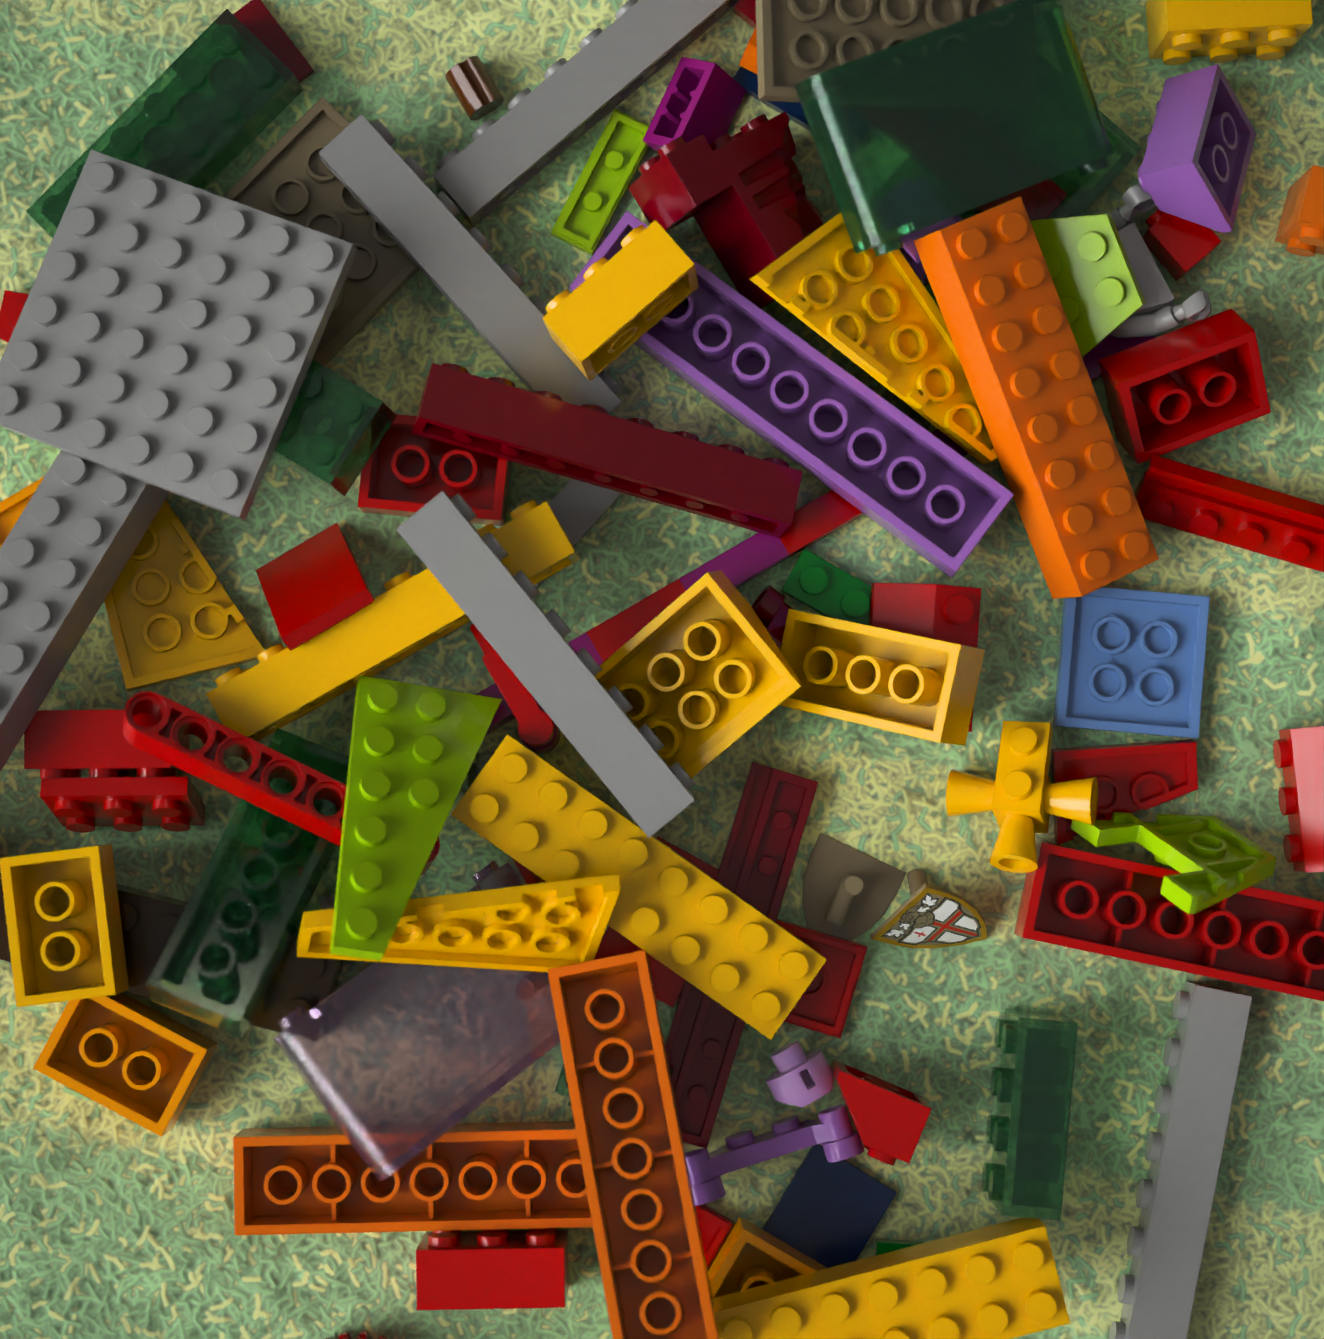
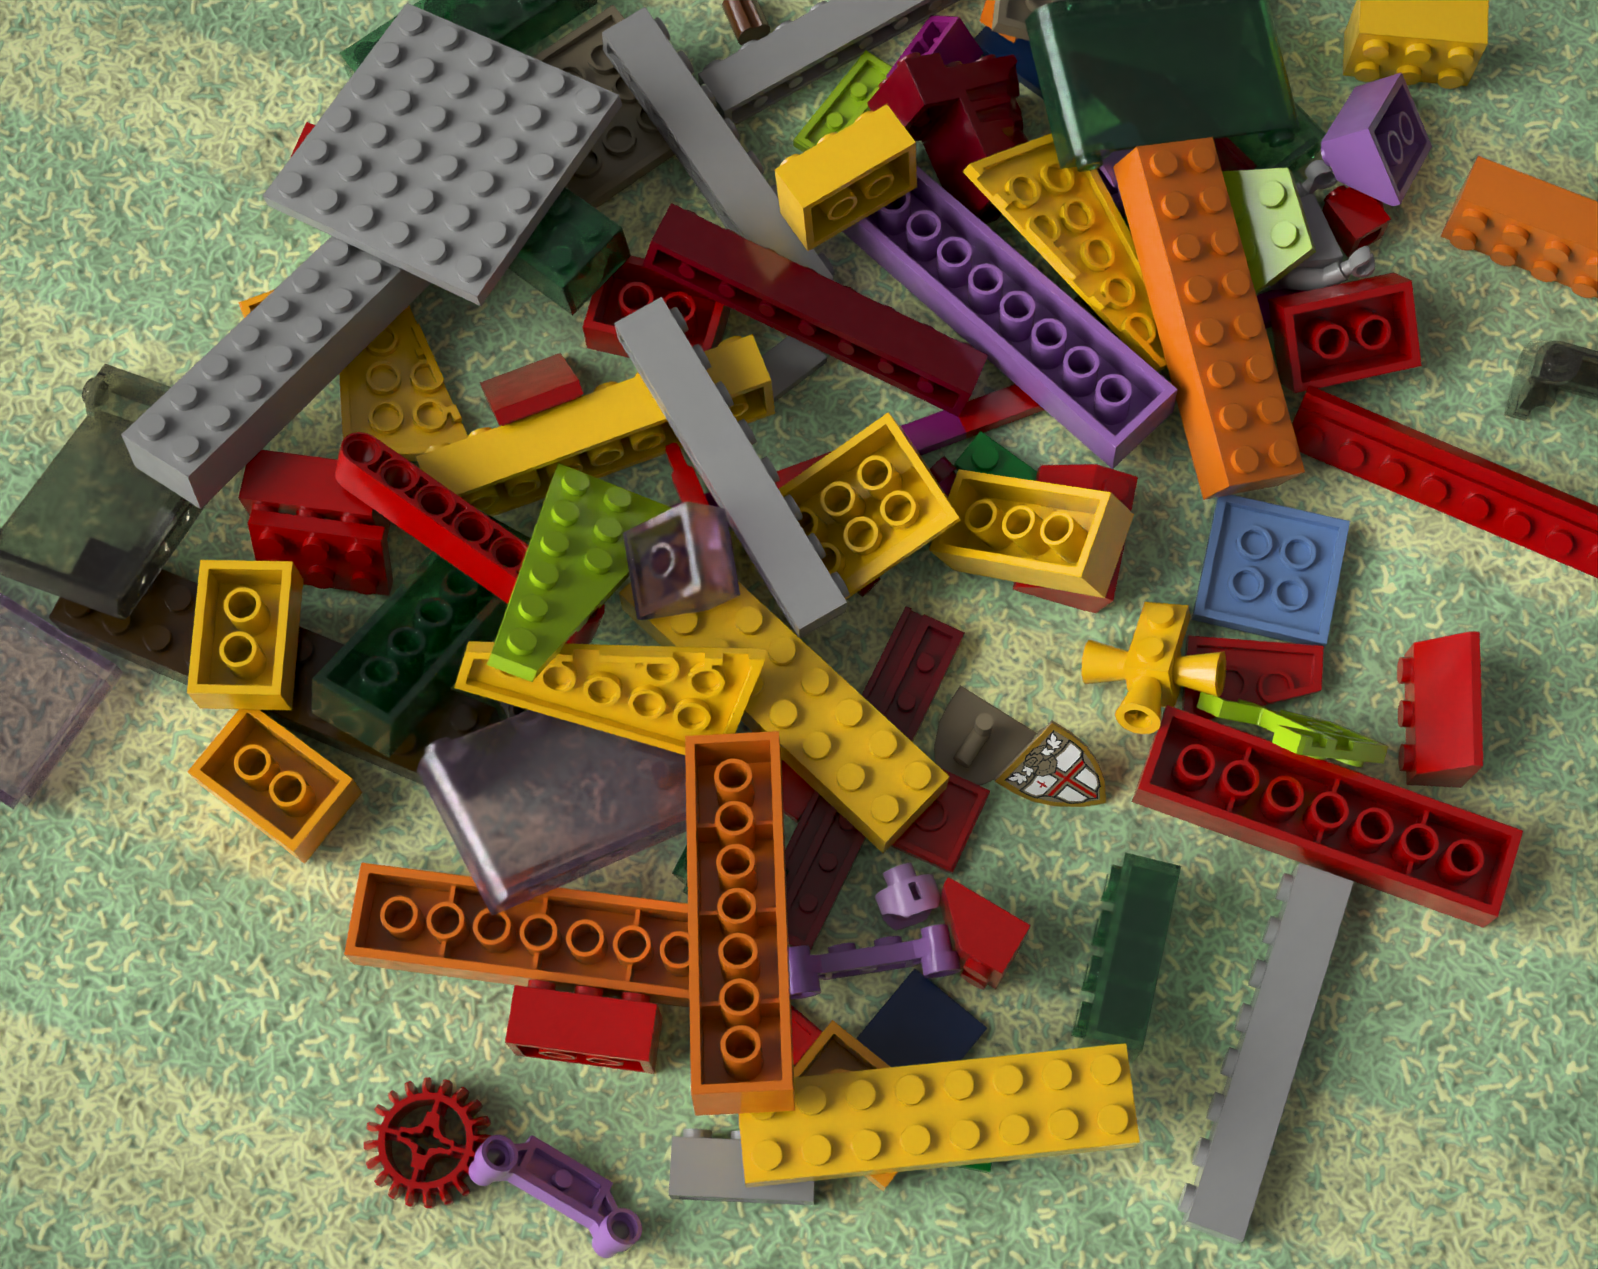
camera: 10 degrees right, 15 degrees down
(512, 782) = (681, 561): none -> slope

